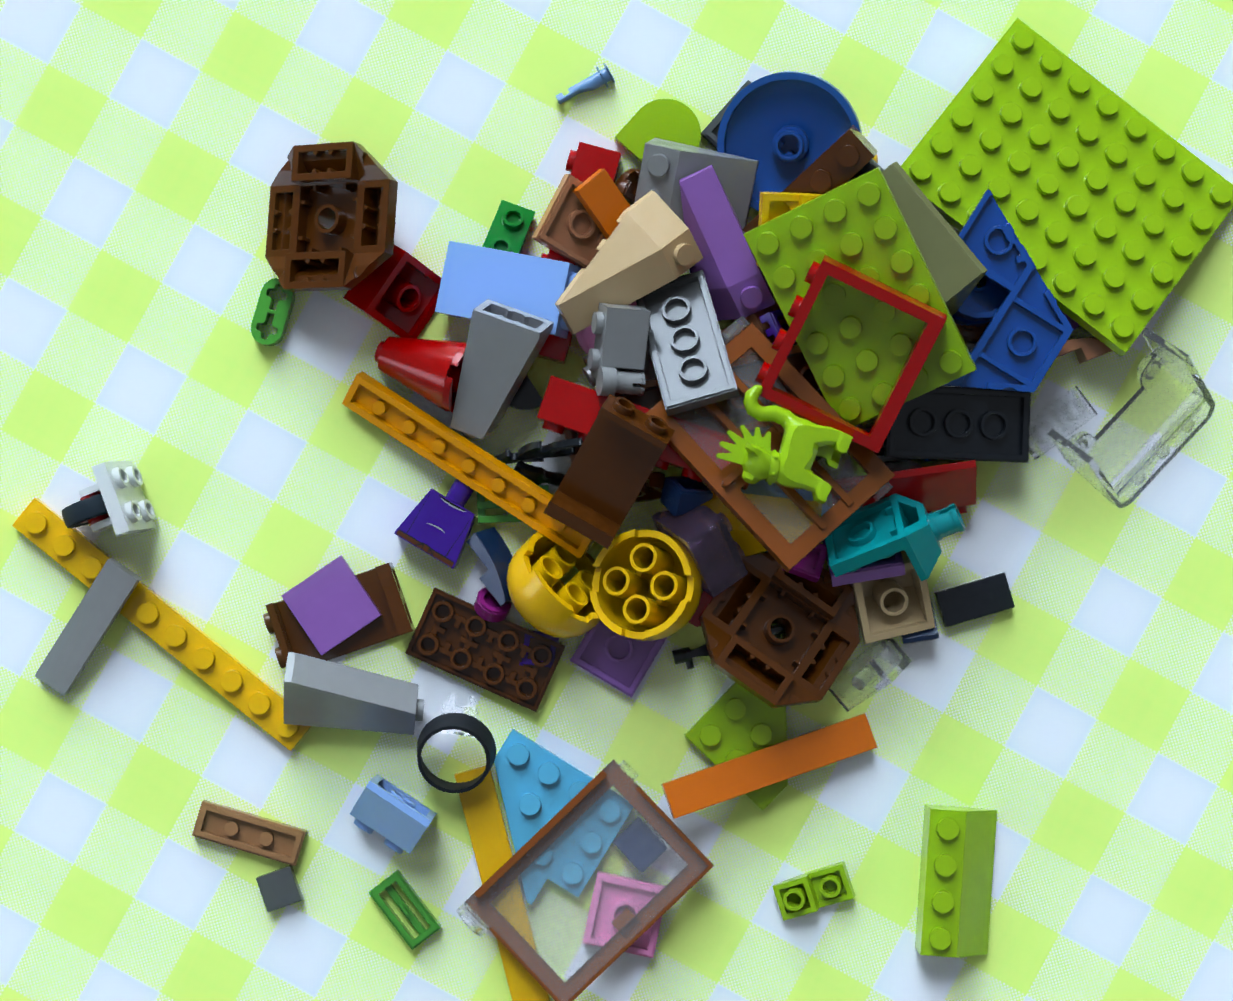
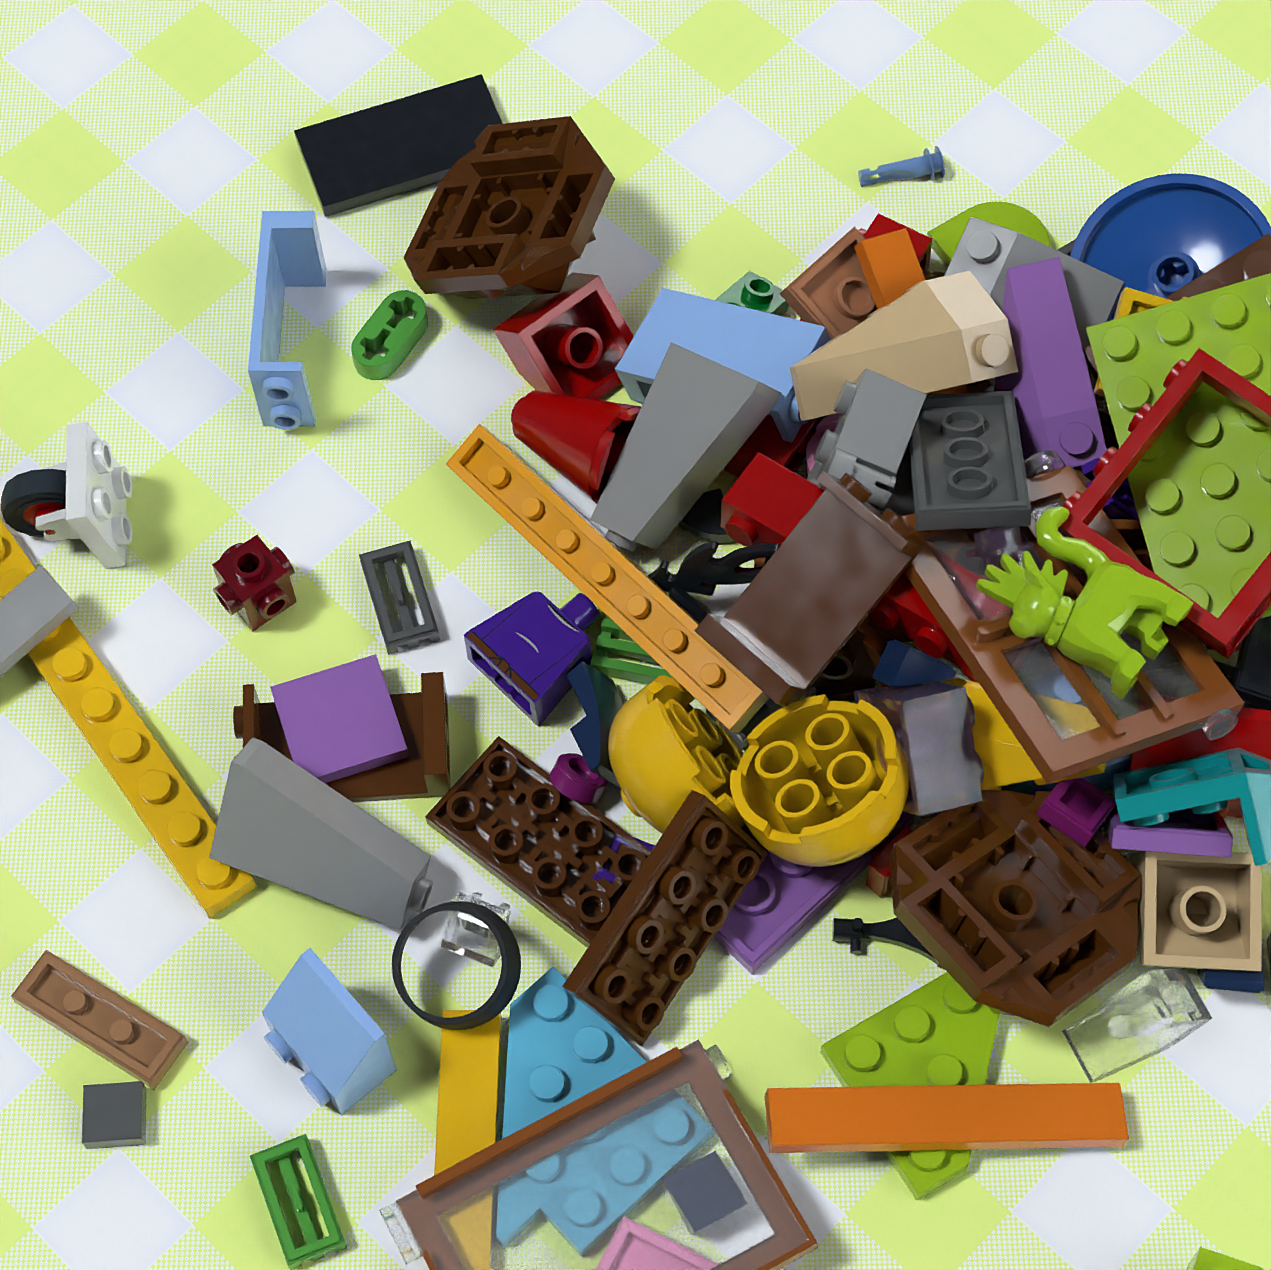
camera: 20 degrees right, 25 degrees down
(180, 279) = (287, 257): none -> light blue panel
(232, 155) = (394, 144): none -> black tile
(259, 526) = (254, 582): none -> dark red brick
(324, 478) = (410, 634): none -> dark grey tile
(574, 694) = (666, 919): none -> reddish brown tile
(722, 417) = (994, 542): none -> clear purple plate

